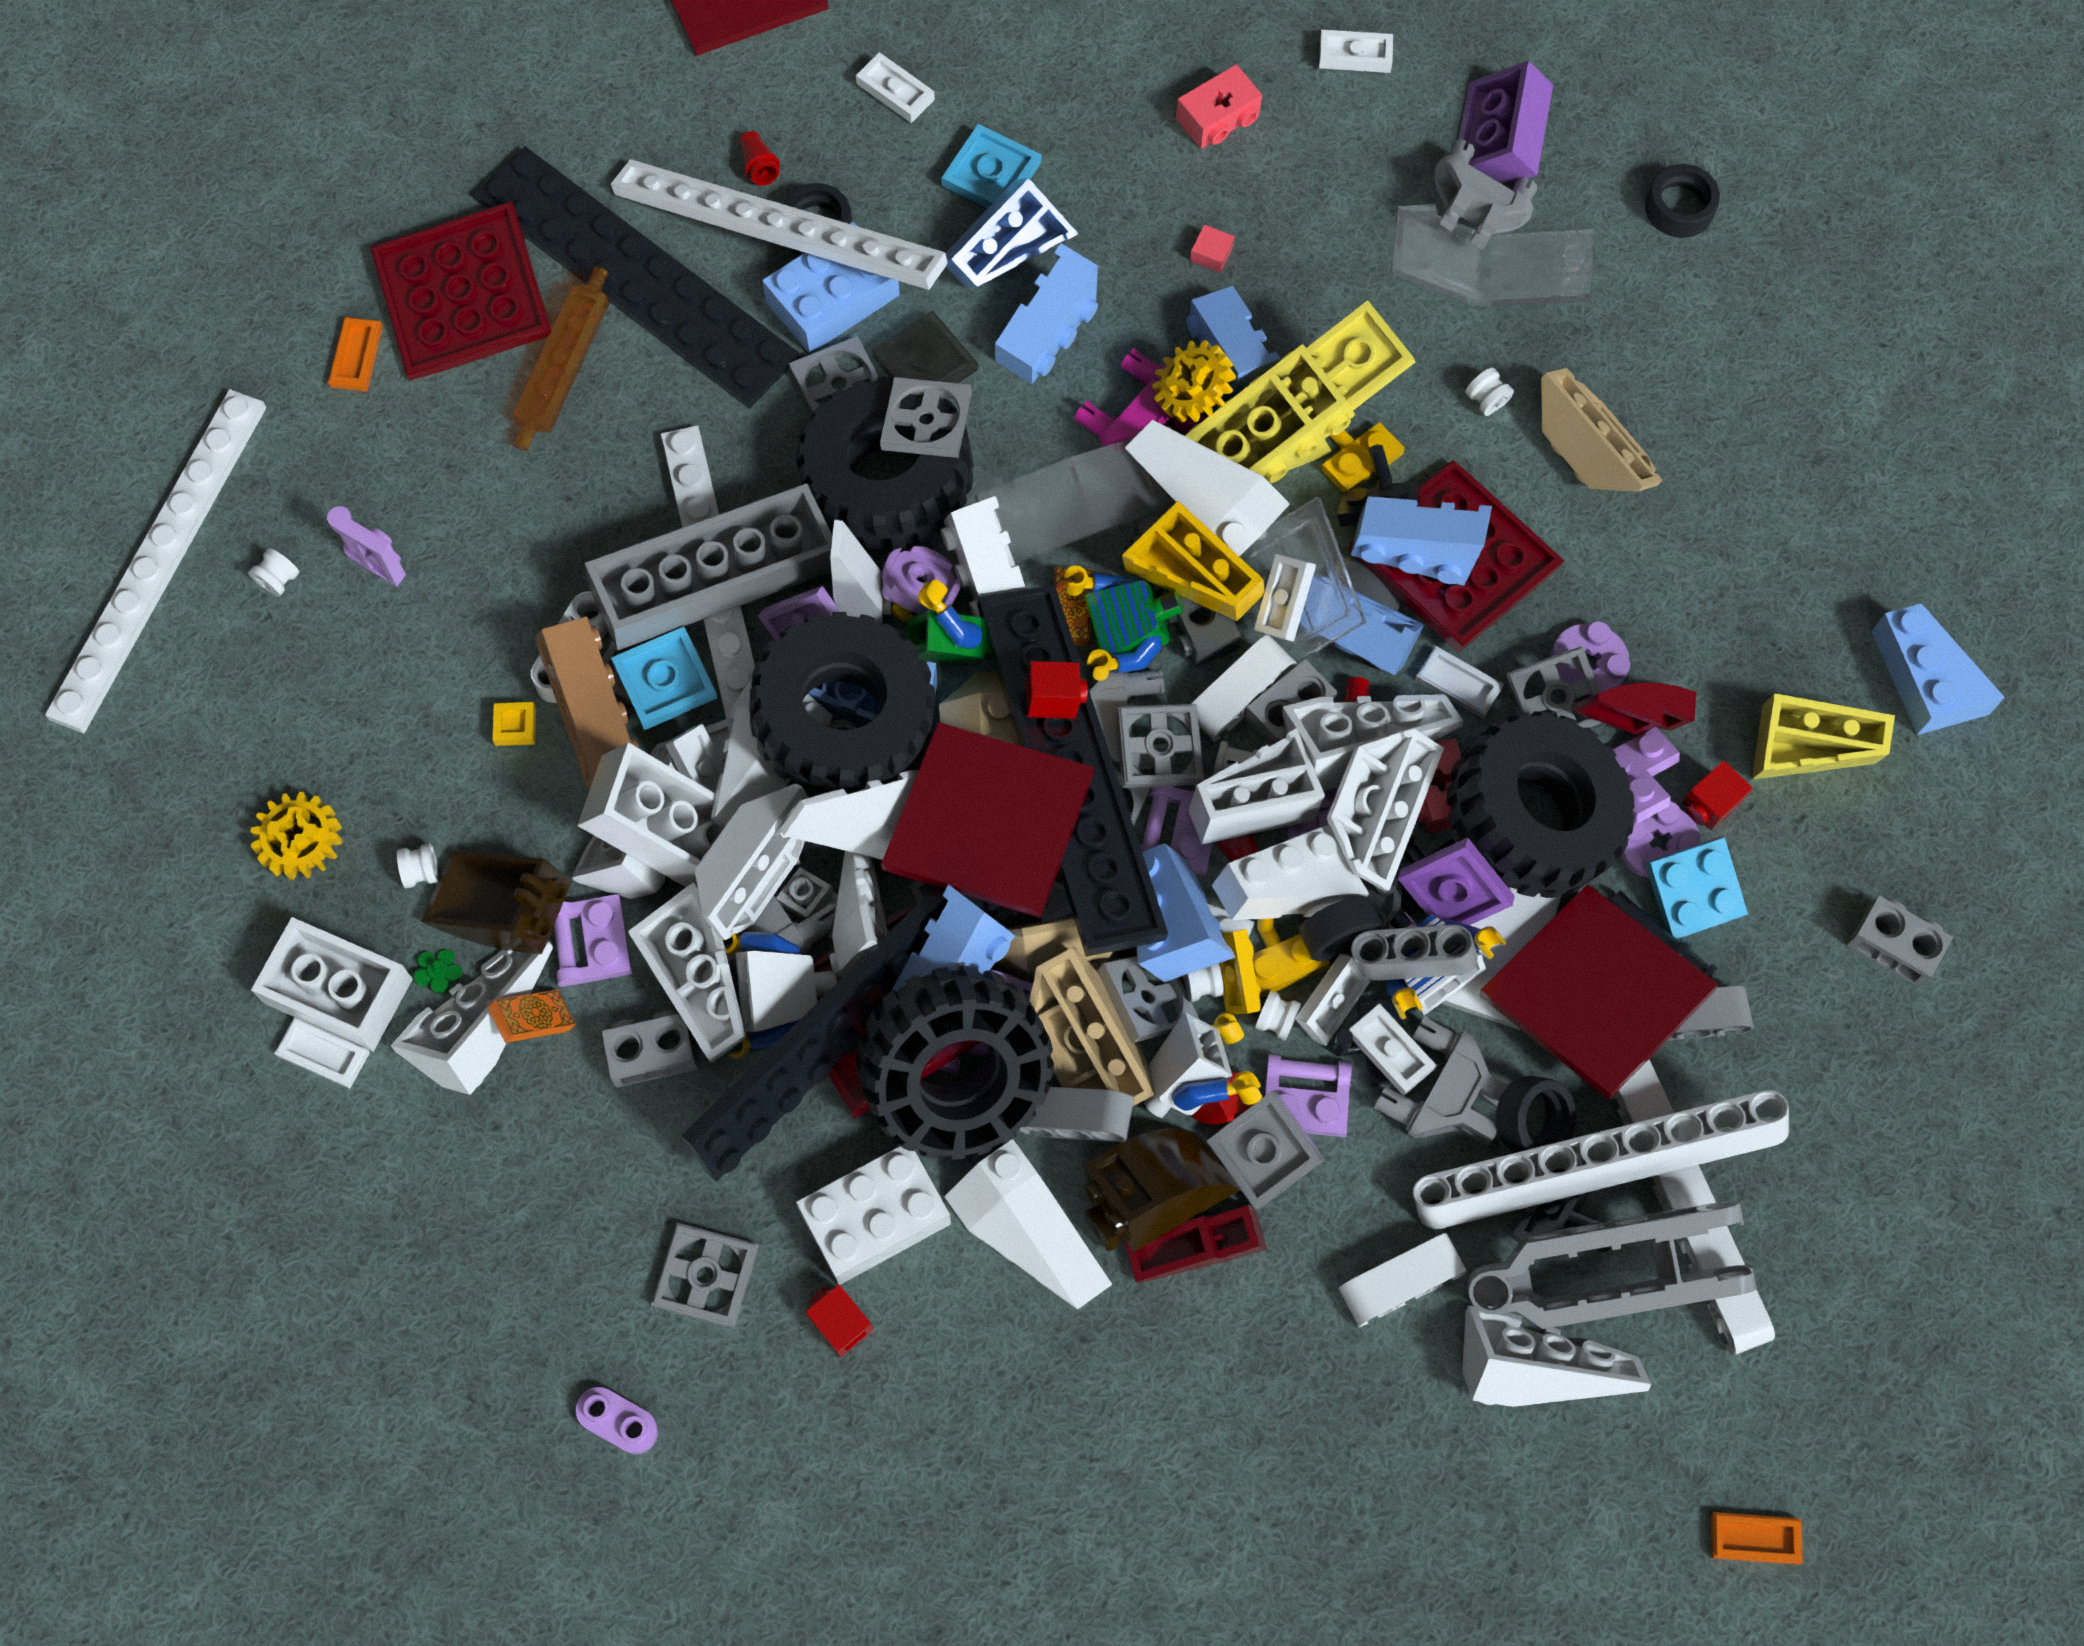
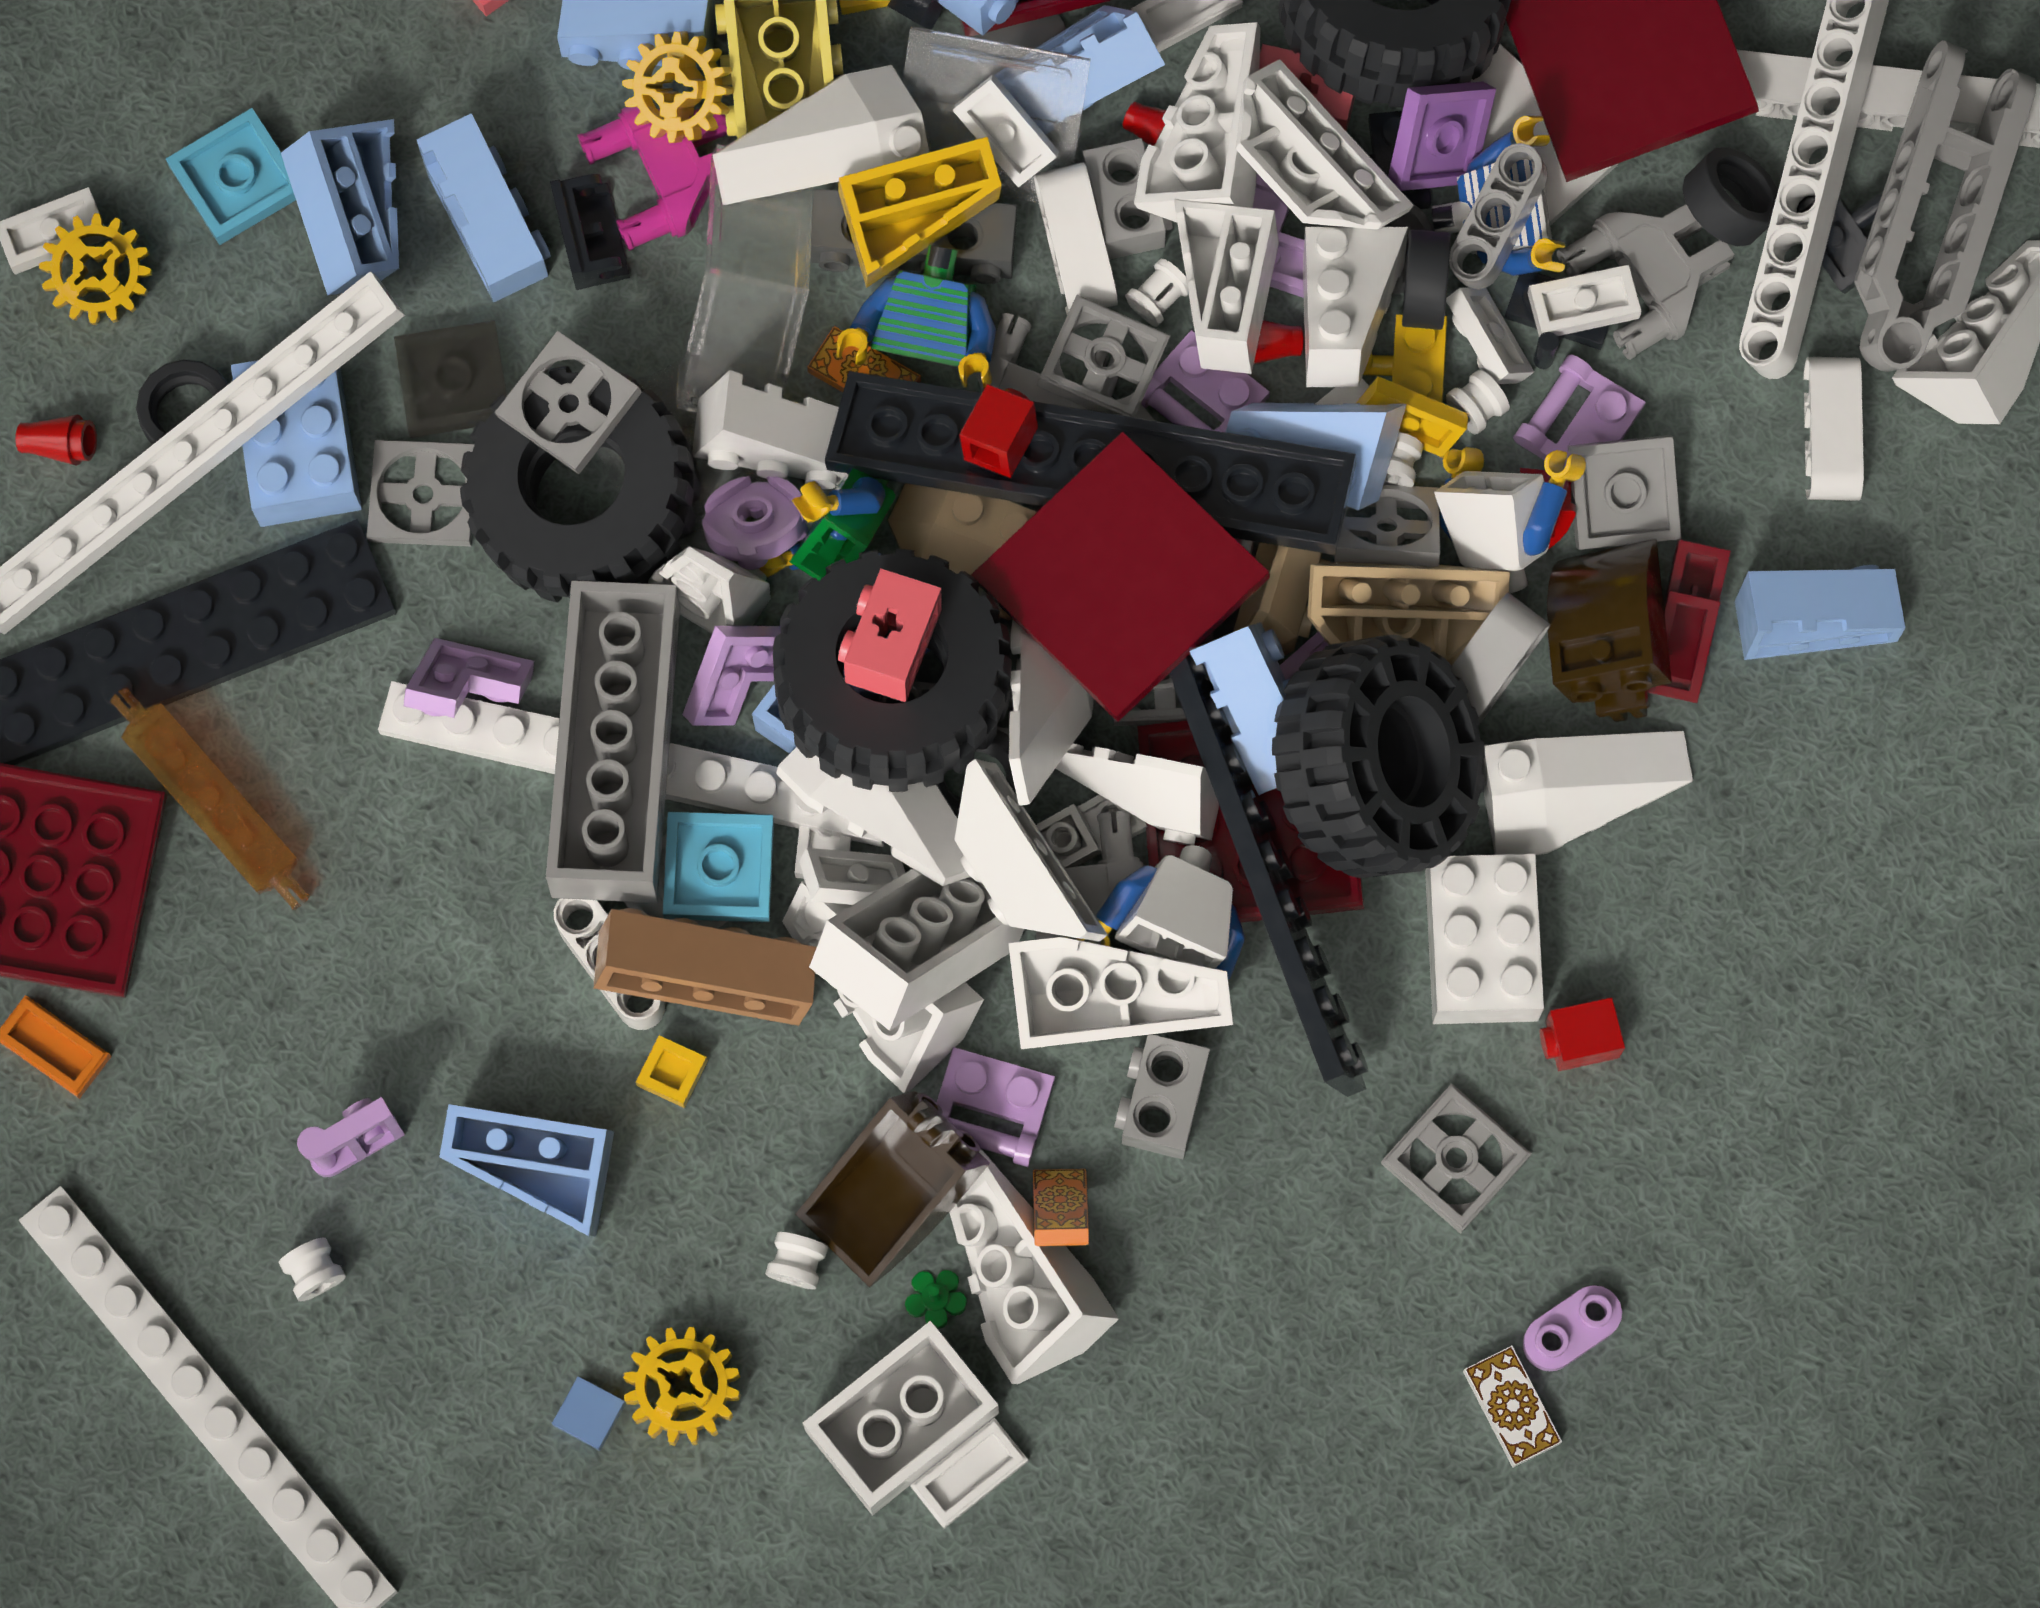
camera: 60 degrees left, 5 degrees up
(254, 788) = (588, 1413): none -> medium blue tile
(407, 666) = (538, 1160): none -> light blue wedge
(538, 1405) = (1512, 1406): none -> tile
(723, 456) = (455, 669): none -> lavender plate
(870, 682) = (890, 663): none -> coral brick
(872, 109) = (114, 254): none -> yellow gear
(1070, 386) = (589, 231): none -> black hinge
(1252, 1334) = (1817, 610): none -> light blue wedge

